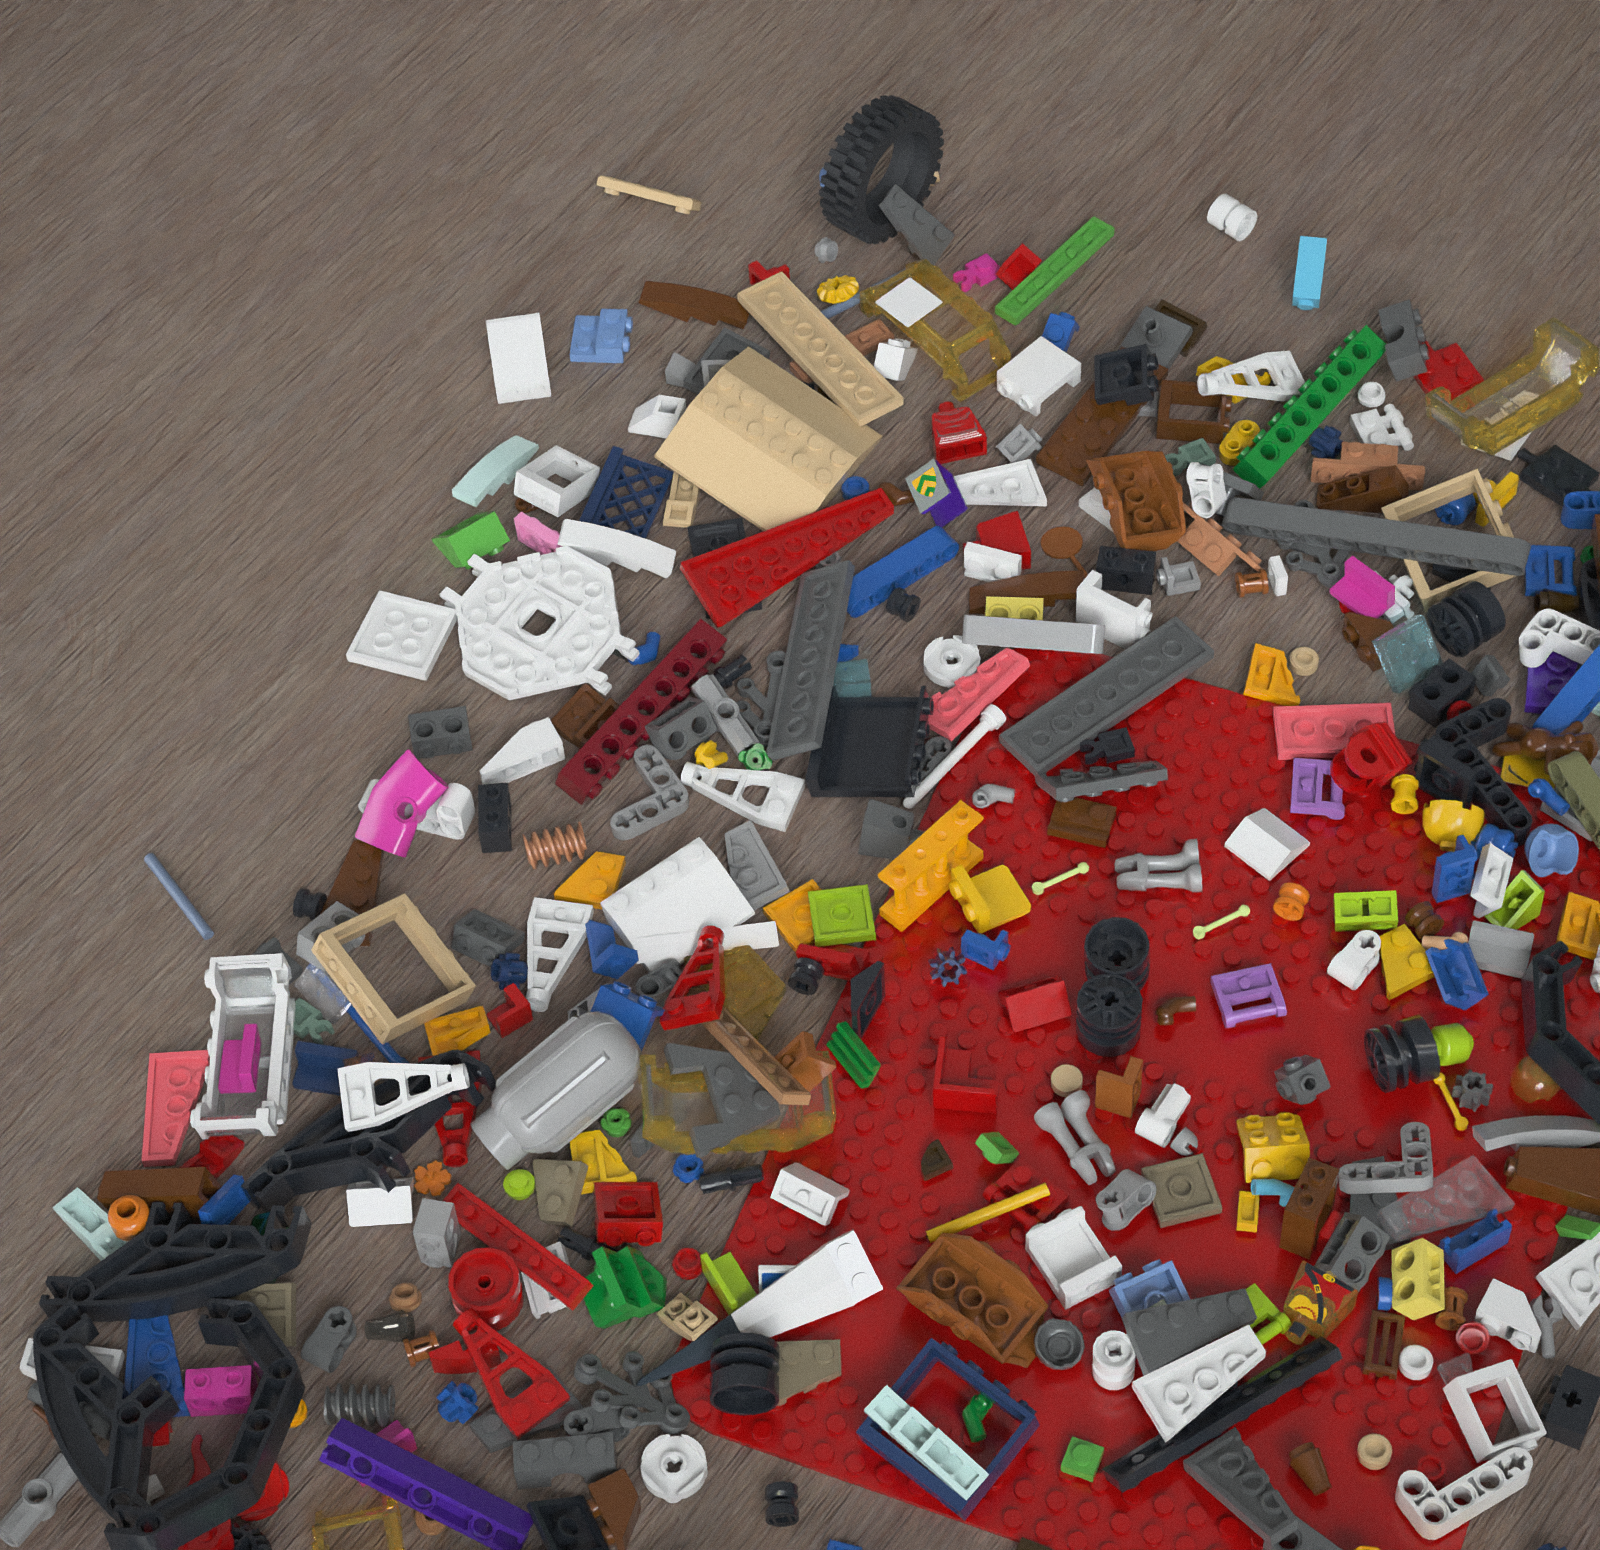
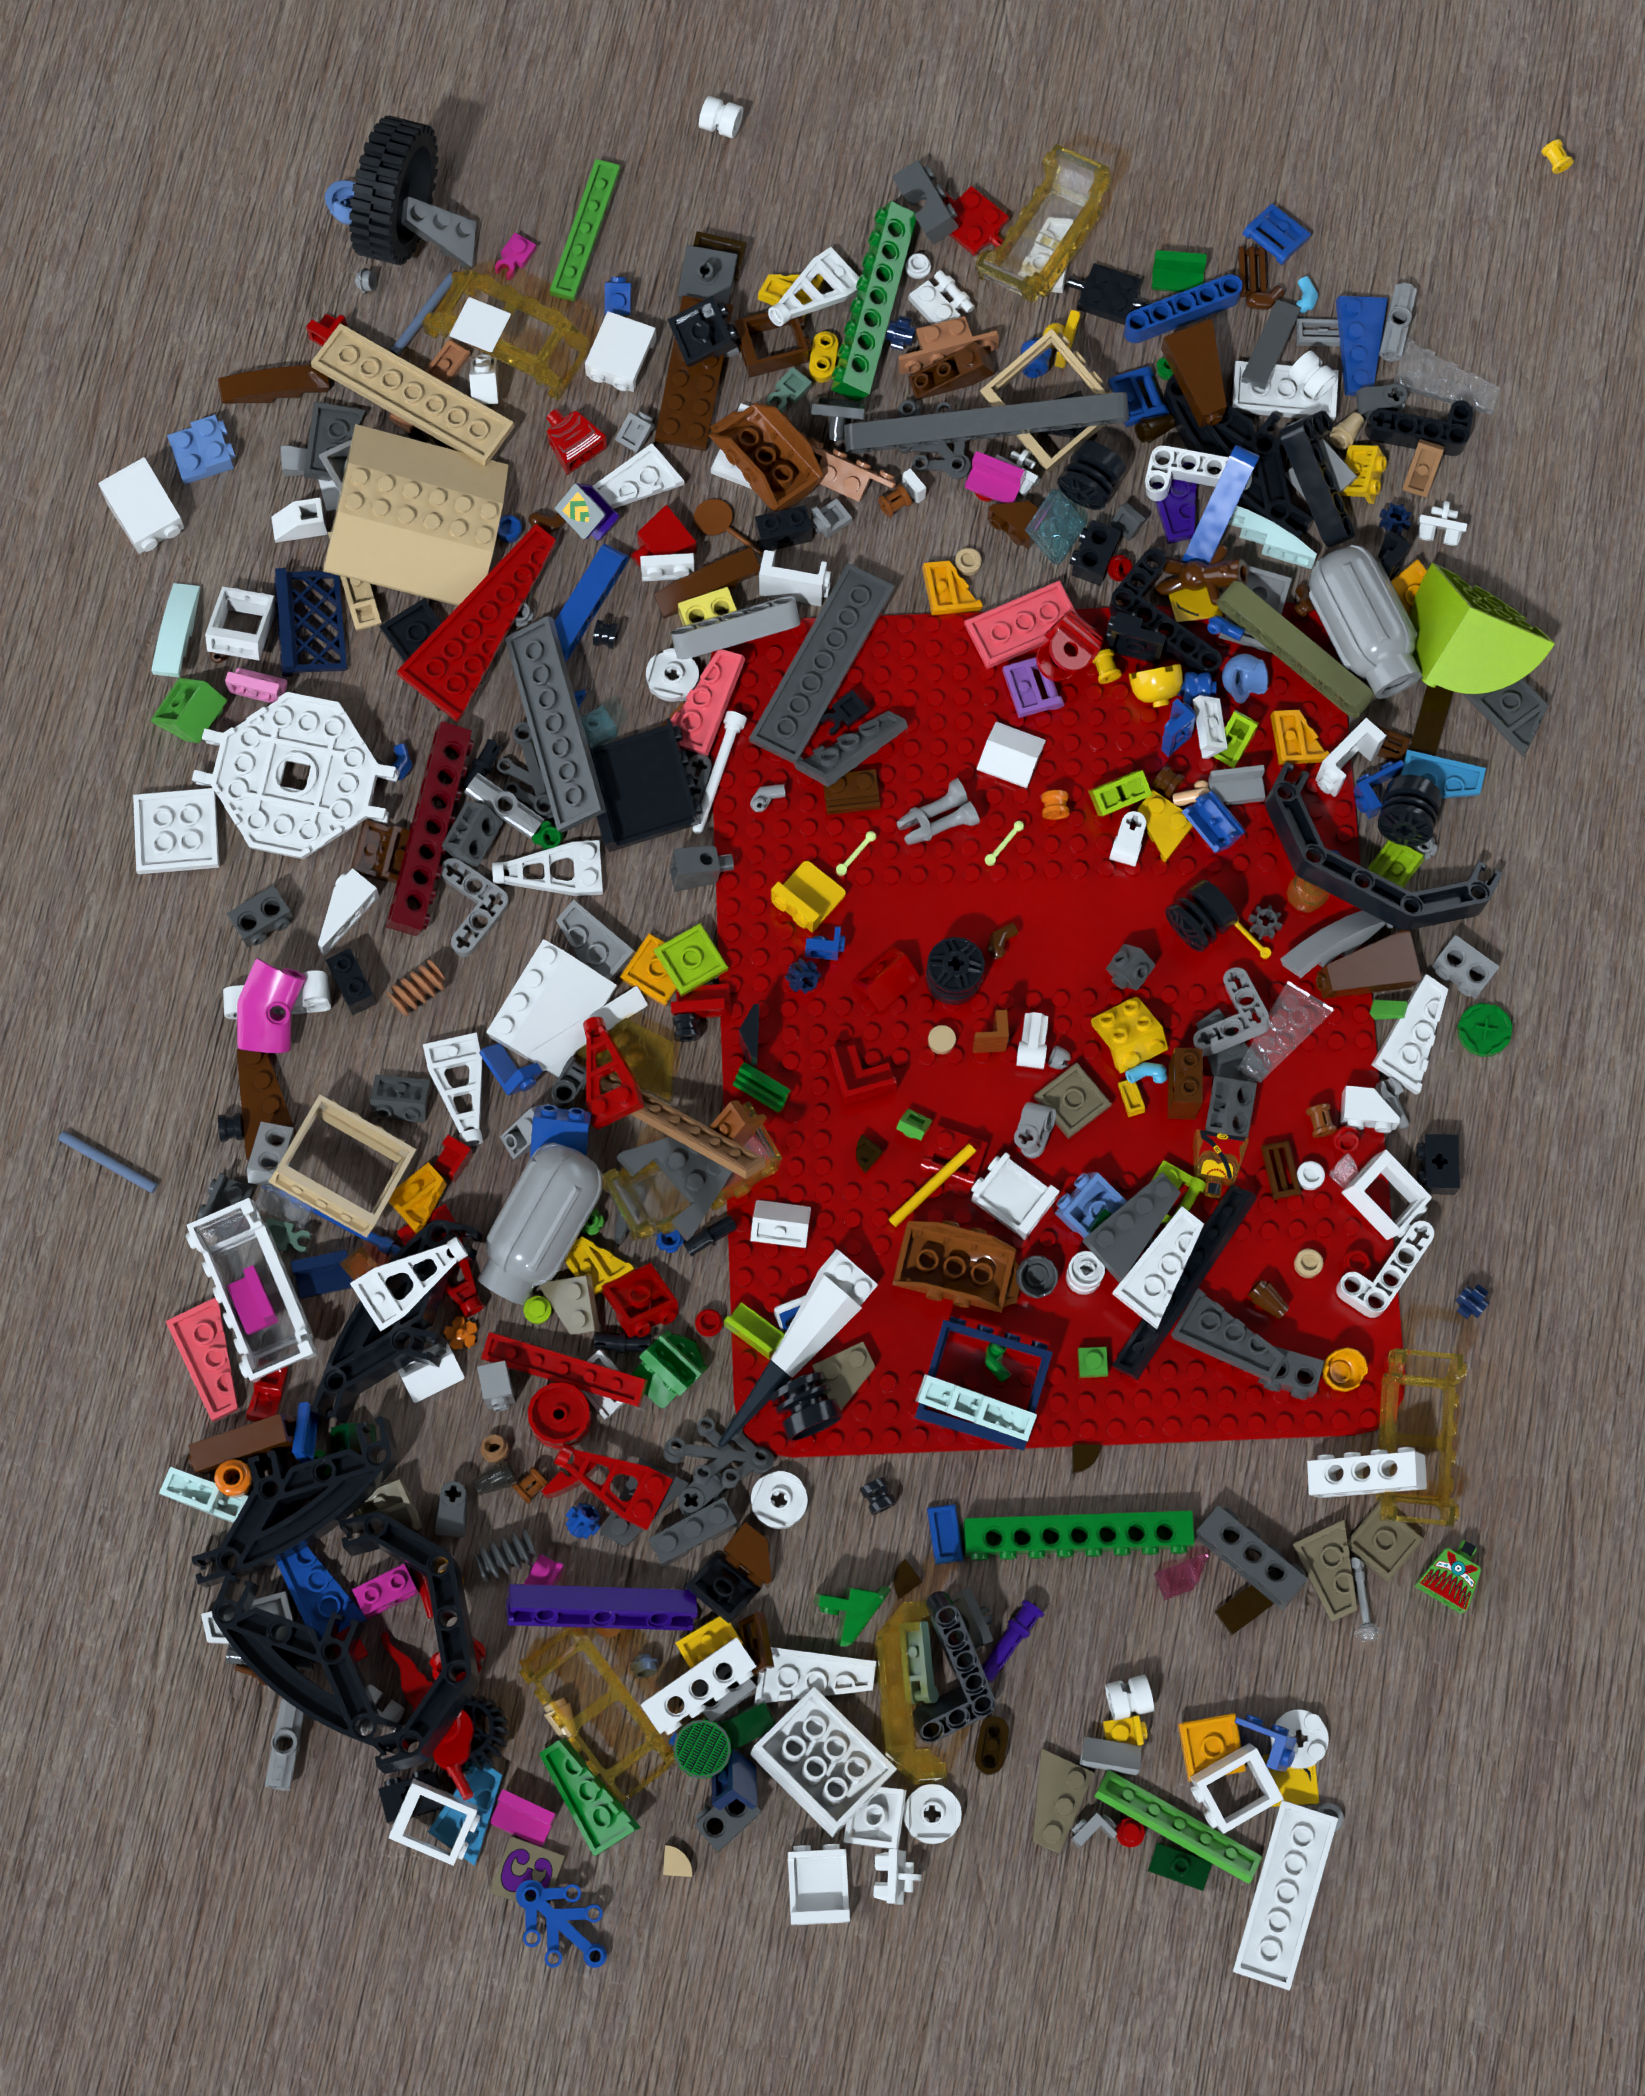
camera: 30 degrees left, 20 degrees up
(509, 970) = (436, 1122): dark blue gear -> none
(593, 880) = (463, 1007): light orange wing -> none
(615, 186) = (135, 276): tan plate -> none
(616, 546) = (329, 672): white slope -> none
(686, 1317) = (733, 1372): tan slope -> none
(708, 756) = (508, 849): yellow plate -> none
(838, 289) = (407, 321): yellow gear -> none
(924, 868) = (751, 891): light orange fence -> none
(1018, 266) = (551, 238): red panel -> none
(1074, 1111) = (962, 1067): light grey piece -> none
(1118, 943) = (946, 903): black wheel -> none
(1206, 488) = (824, 427): white piece -> none
(1248, 986) = (1051, 897): medium lavender plate -> none
(1309, 272) = (815, 157): medium azure slope -> none
(1384, 1293) = (1266, 1129): blue tile -> none
(1418, 1279) = (1292, 1106): light yellow brick -> none
(1453, 1043) = (1234, 886): lime head -> none
(1475, 1242) = (1315, 1054): blue hinge -> none

